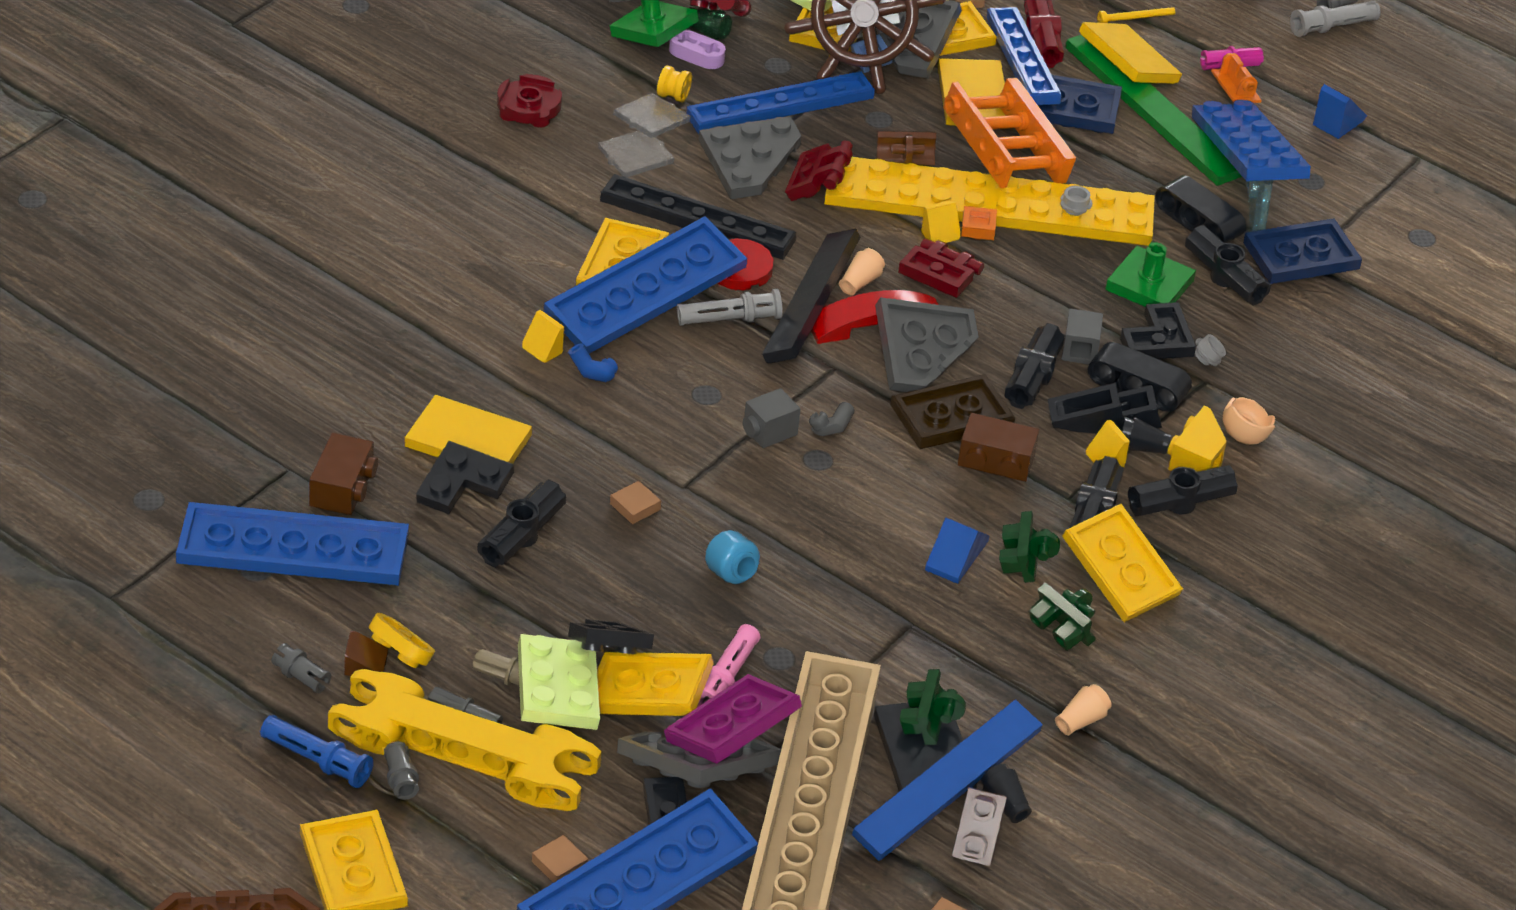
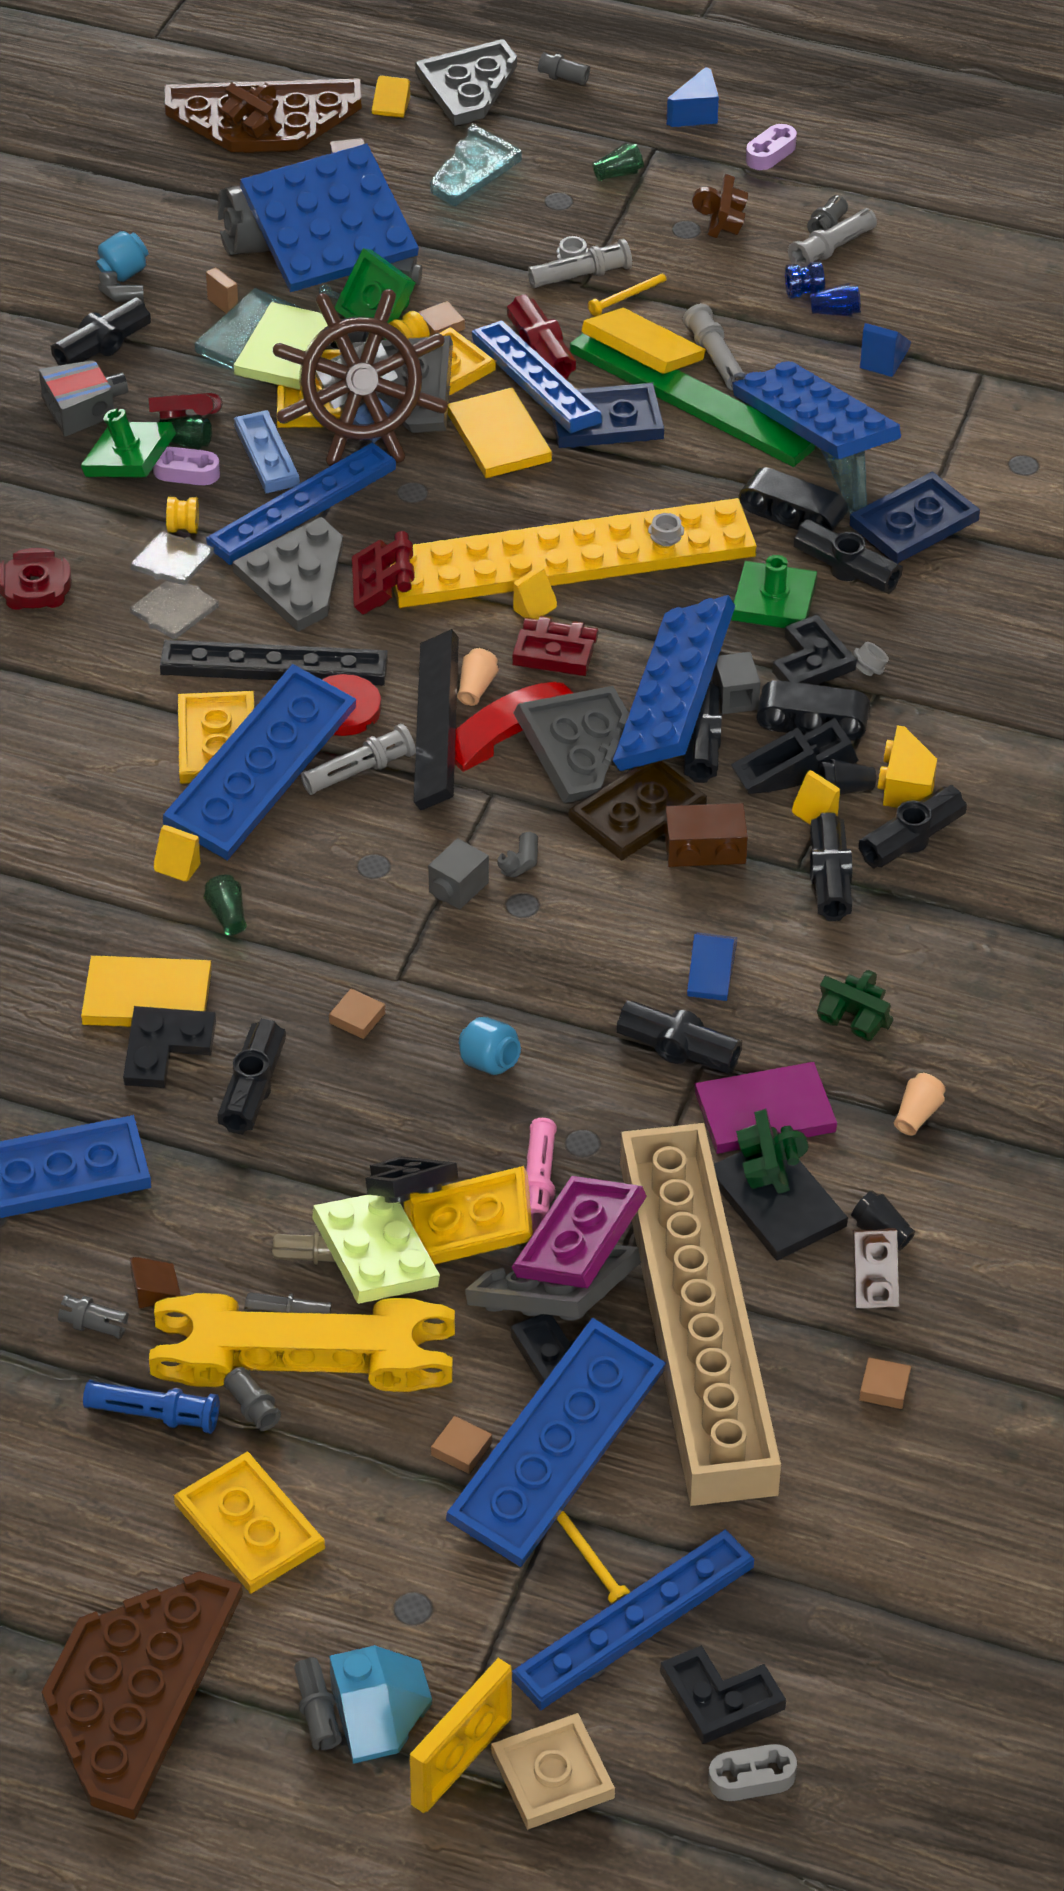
camera: 15 degrees left, 5 degrees up
(342, 474) = (34, 1079): reddish brown brick -> none
(394, 634) = (171, 1245): yellow plate -> none
(566, 385) = (226, 902): none -> clear green cone
(592, 369) = (246, 874): blue arm -> none
(770, 55) = (266, 451): none -> medium blue tile
(899, 597) = (679, 1036): none -> black piece
(906, 146) = (461, 518): reddish brown hips -> none
(946, 780) = (819, 1227): blue tile -> none
(972, 671) = (789, 1093): none -> magenta tile
(979, 223) = (572, 583): orange plate -> none
(1024, 116) = (576, 451): orange fence -> none
(1026, 321) = (674, 683): none -> blue plate
(1026, 546) = (797, 933): dark green hips -> none
(1122, 562) = (888, 927): yellow tile -> none
(1190, 65) = (710, 336): none -> light grey pin
(1214, 58) = (749, 315): dark pink axle -> none
(1236, 79) = (766, 340): orange hinge -> none
(1247, 421) = (944, 728): light nougat hair -> none
(1294, 42) = (804, 279): none -> clear blue wheel
(1315, 66) = (838, 301): none -> clear blue cone

